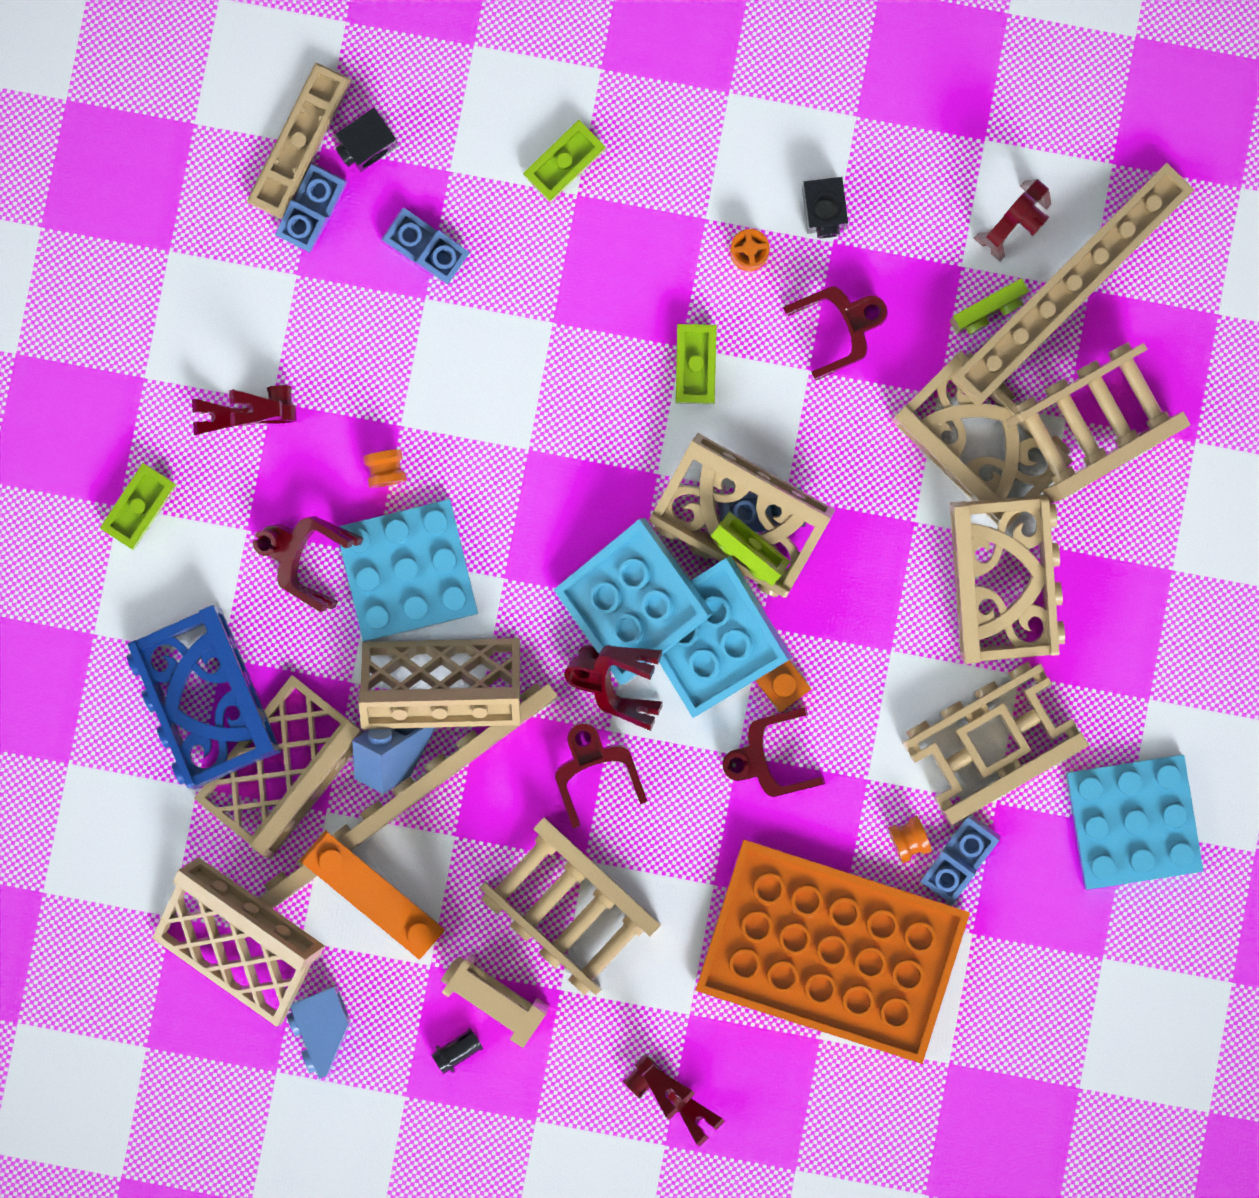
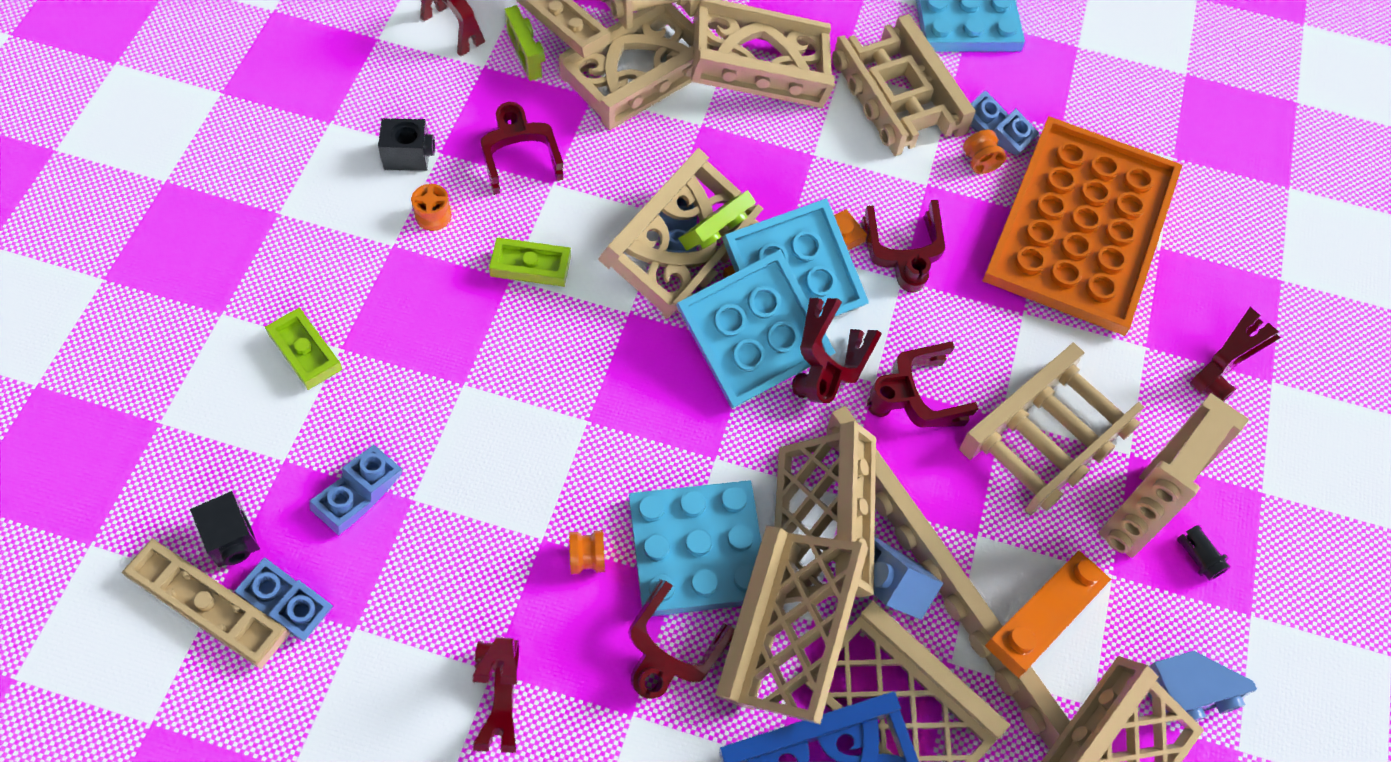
camera: 90 degrees left, 25 degrees down
(334, 634) = (764, 617): none -> tan fence

